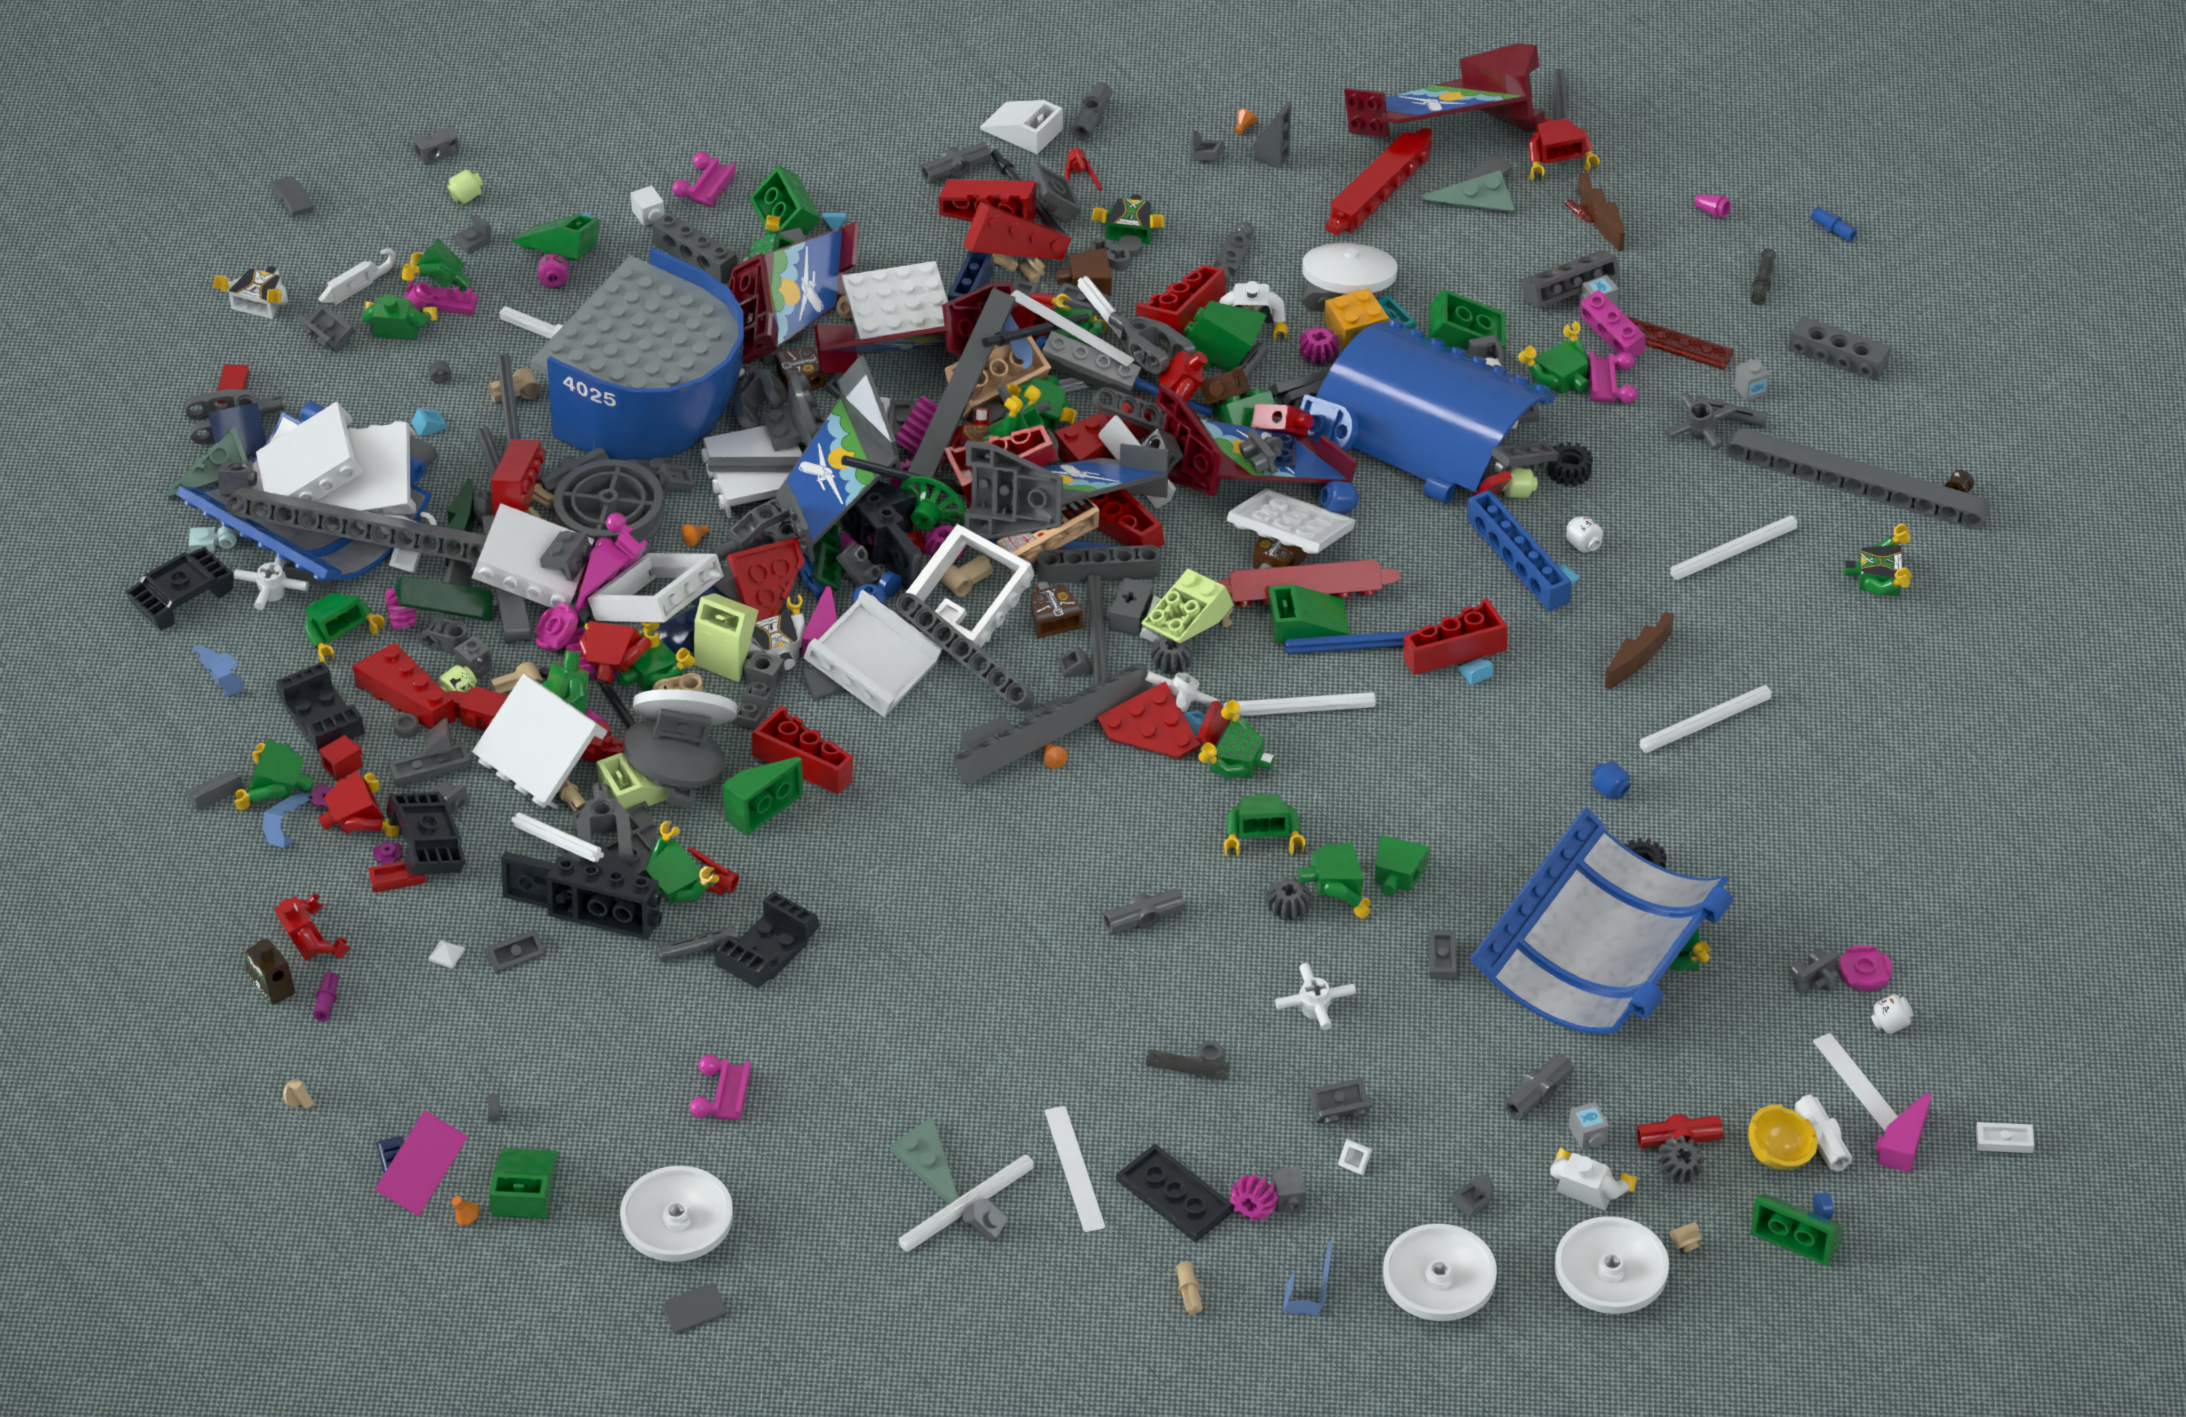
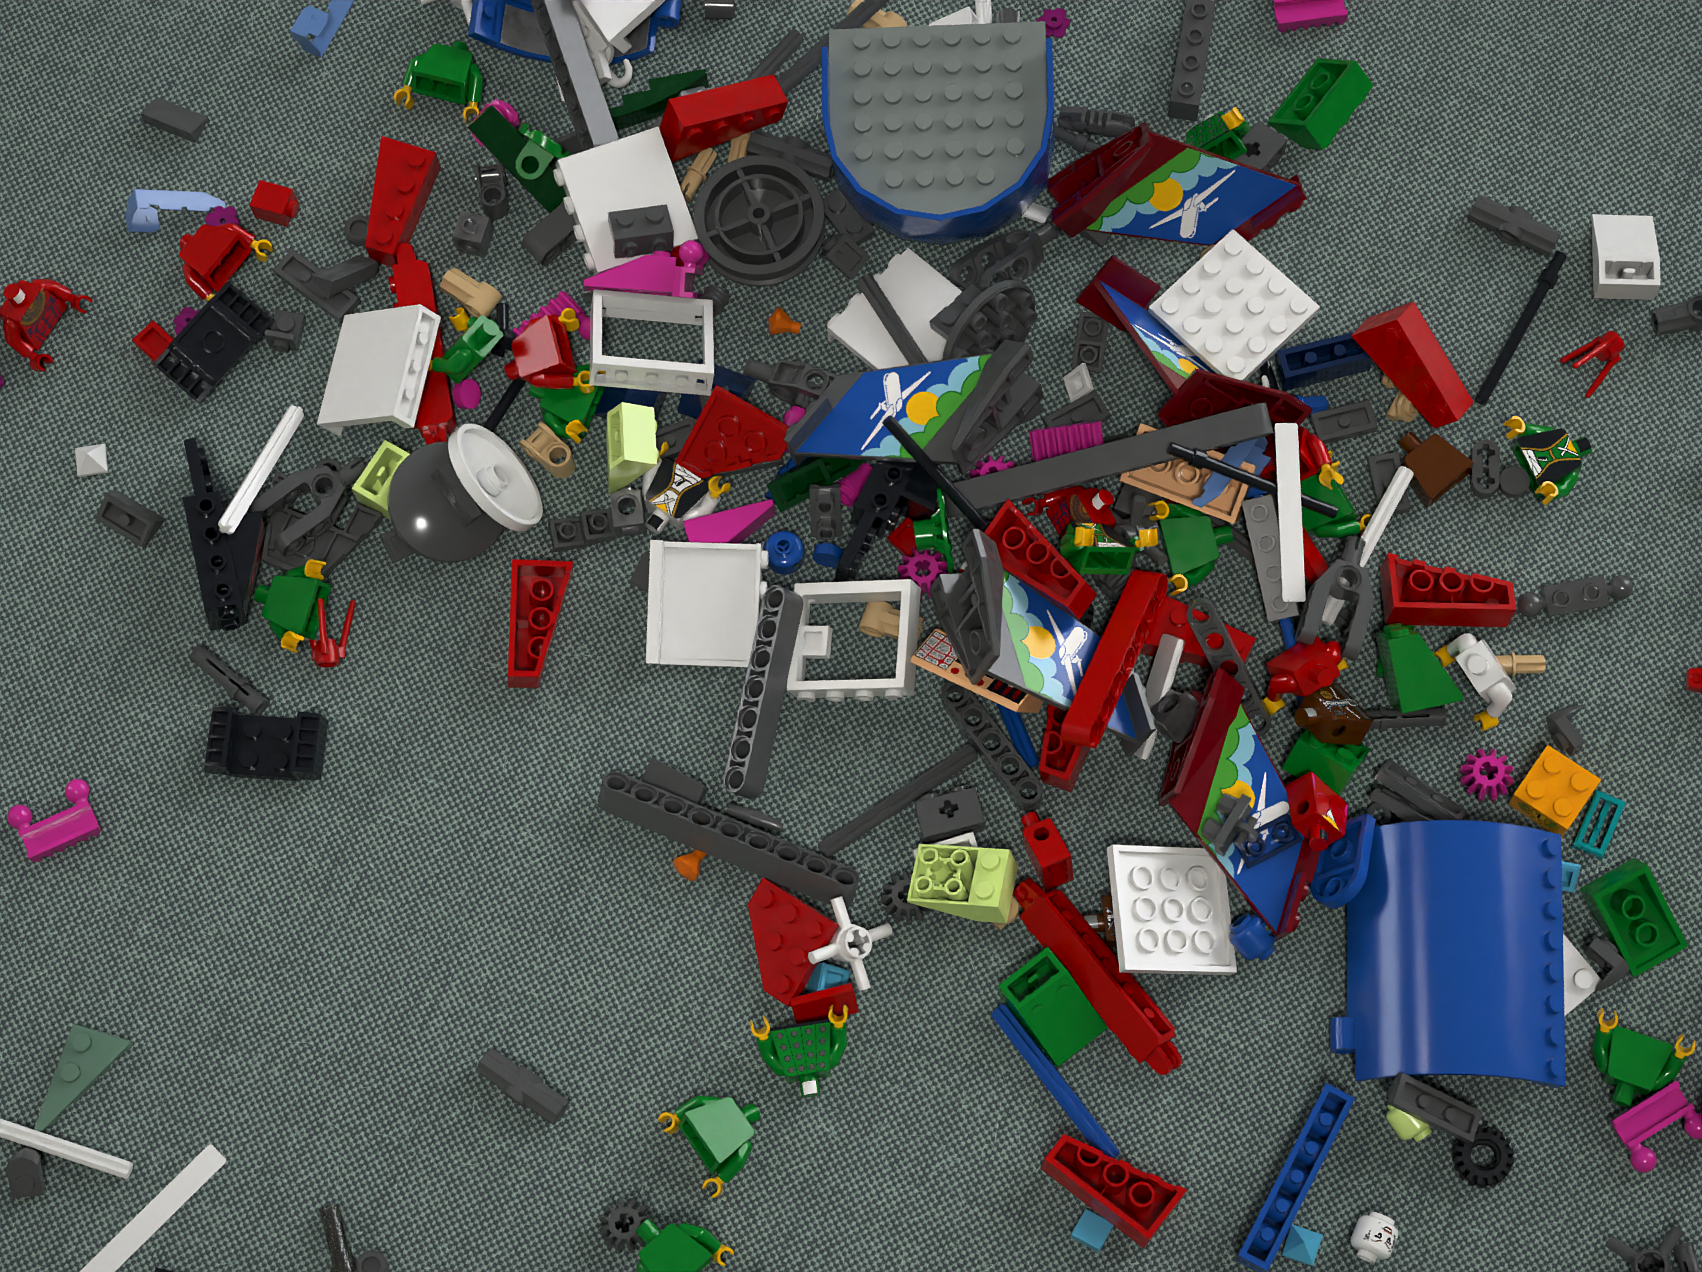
camera: 65 degrees right, 25 degrees up
(274, 775) = (215, 160): green torso -> none
(318, 706) = (326, 143): black plate -> none
(453, 572) = (541, 148): none -> green tile
(457, 679) = (431, 241): yellowish green head -> none
(556, 627) = (560, 282): dark pink tile -> none
(570, 794) = (352, 442): tan axle -> none
(761, 793) = (437, 616): green slope -> none
(803, 360) = (1075, 270): reddish brown torso -> none
(834, 220) = (1339, 162): medium azure slope -> none
(962, 197) = (1467, 301): red wedge -> none
(1054, 610) = (894, 739): reddish brown torso -> none
(1056, 192) = (1524, 357): dark grey plate -> none
(1074, 663) = (839, 806): dark grey slope -> none
(1102, 448) = (1114, 659): none -> red beam
(1199, 557) = (1046, 851): none -> red torso
(1306, 704) = (921, 1073): white axle -> none
(1349, 268) = (1631, 737): white dish -> none
(1495, 483) = (1372, 1096): red tile -> none

